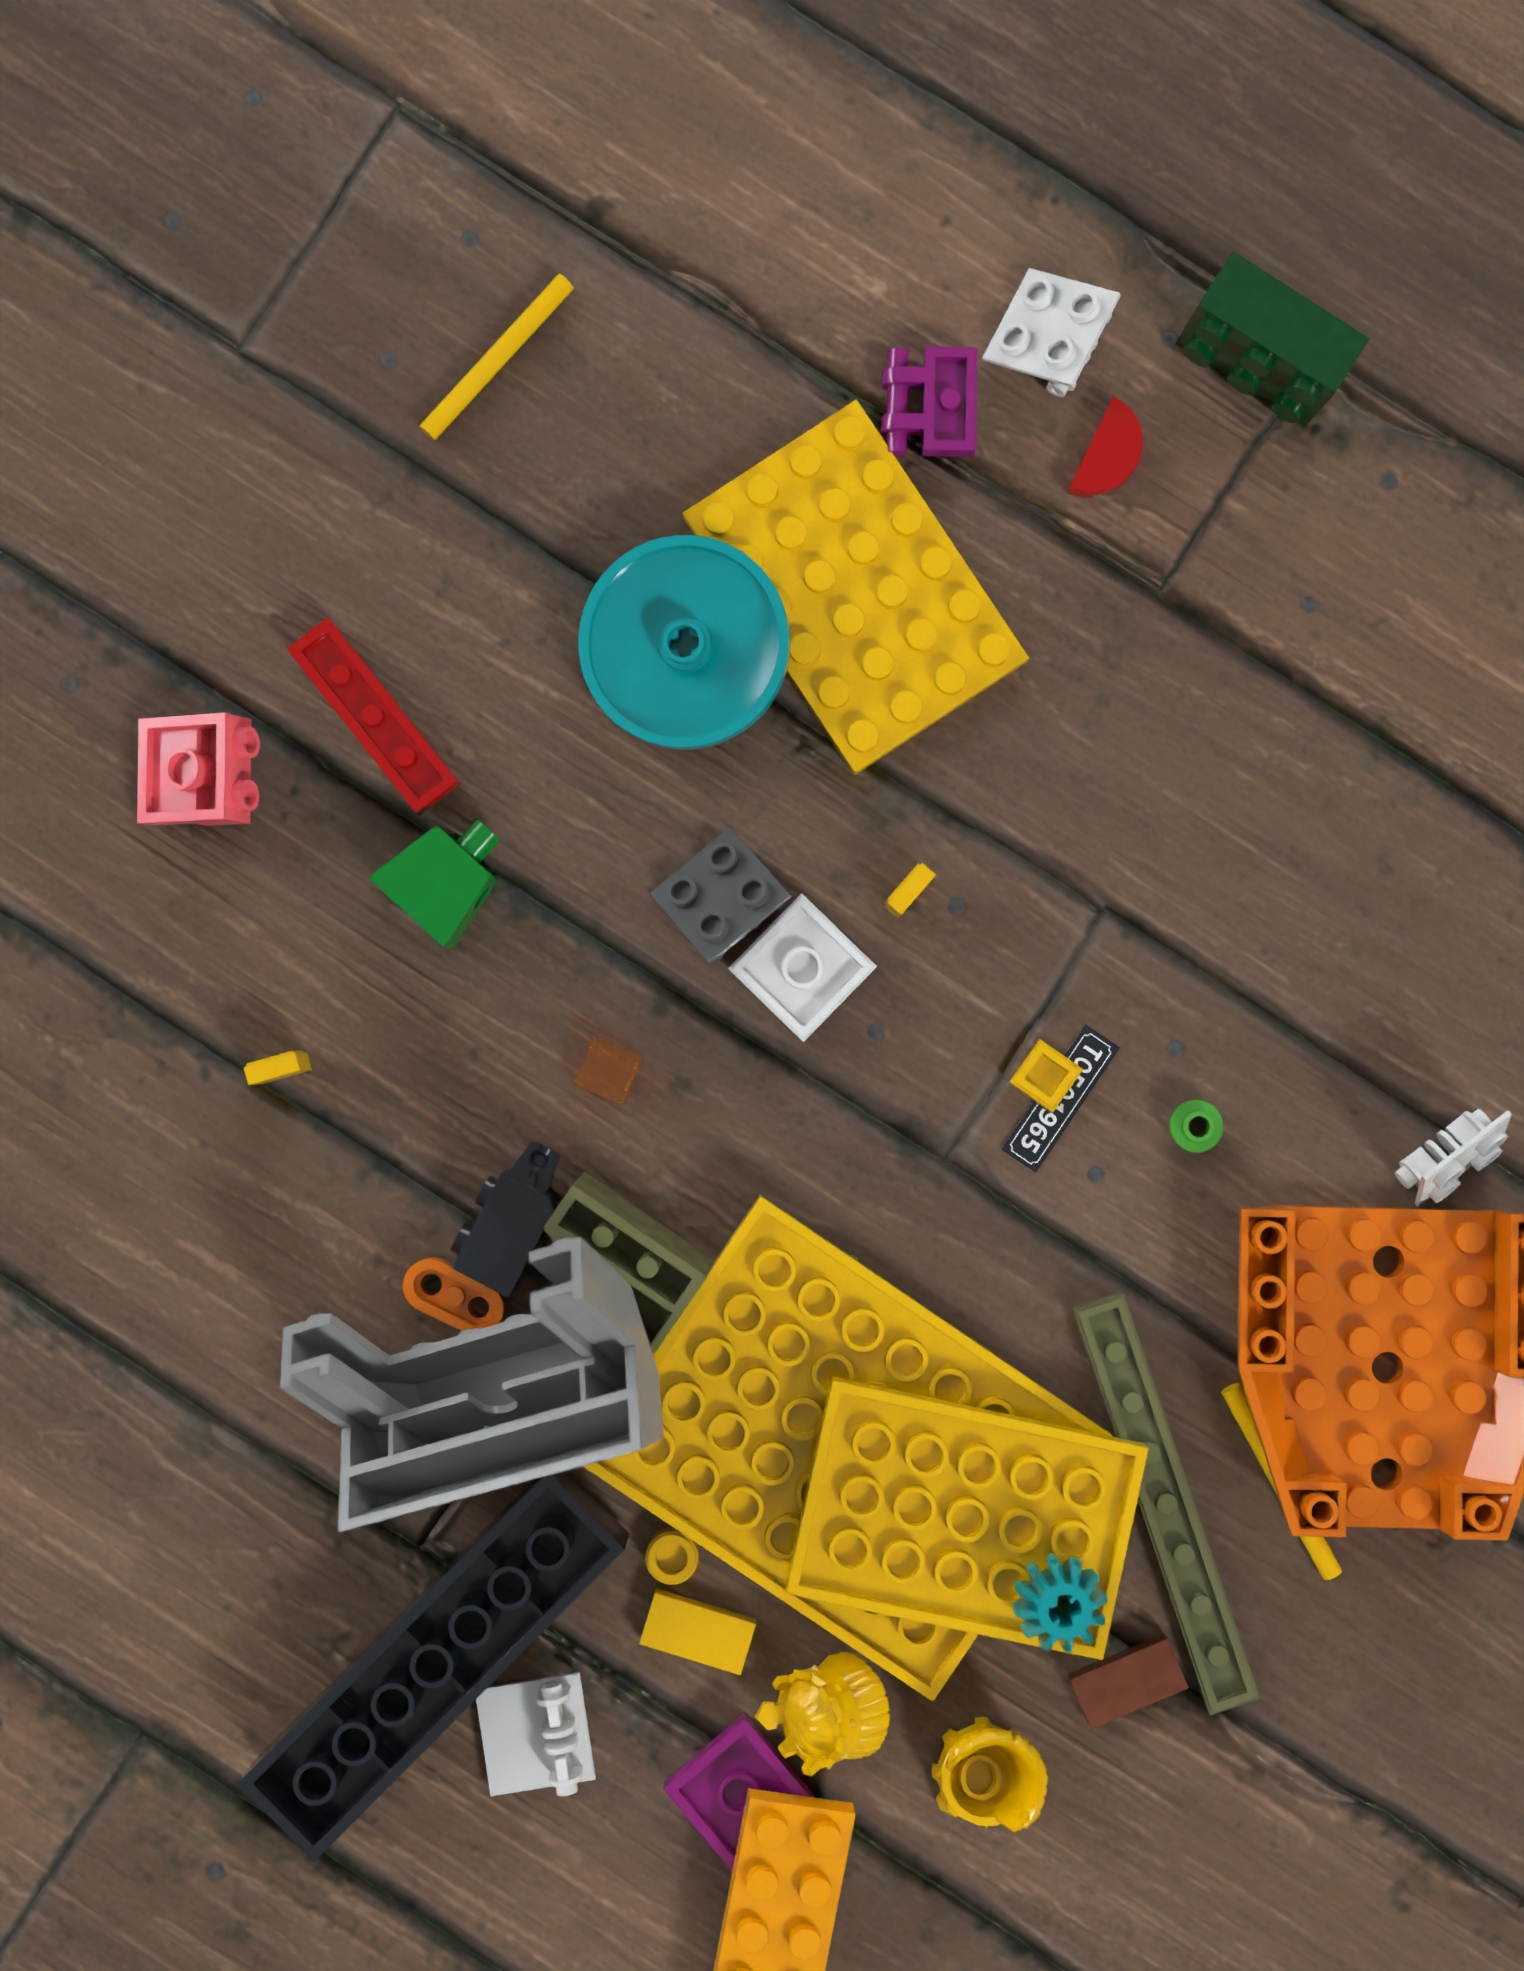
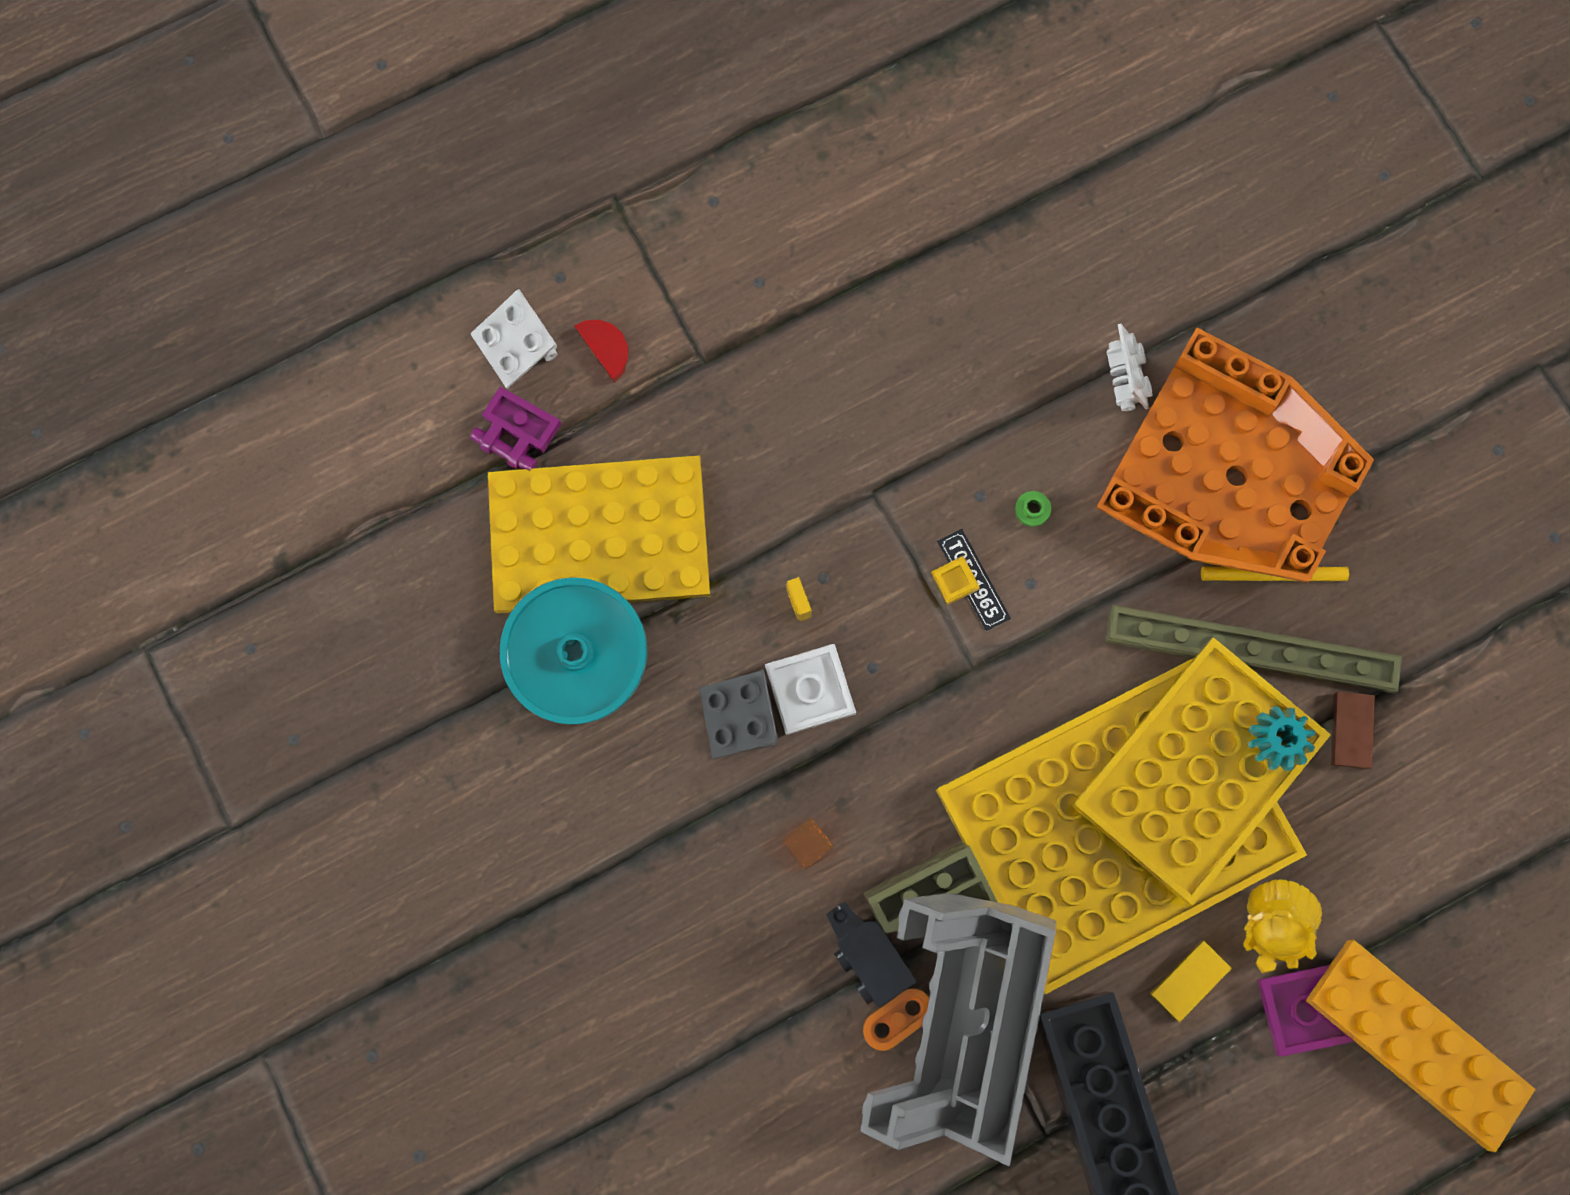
camera: 55 degrees left, 10 degrees down
(196, 770) = (475, 1000): coral plate -> none
(277, 1067) = (691, 1053): yellow tile -> none
(373, 716) = (506, 868): red plate -> none
(441, 880) = (632, 881): green torso -> none
(496, 356) = (332, 672): yellow bar -> none
(536, 1735) = (1206, 1123): white hinge -> none
(671, 1556) = (1134, 971): yellow tile -> none
(990, 1776) = (1371, 844): yellow hair -> none
(1270, 341) = (596, 221): dark green brick -> none

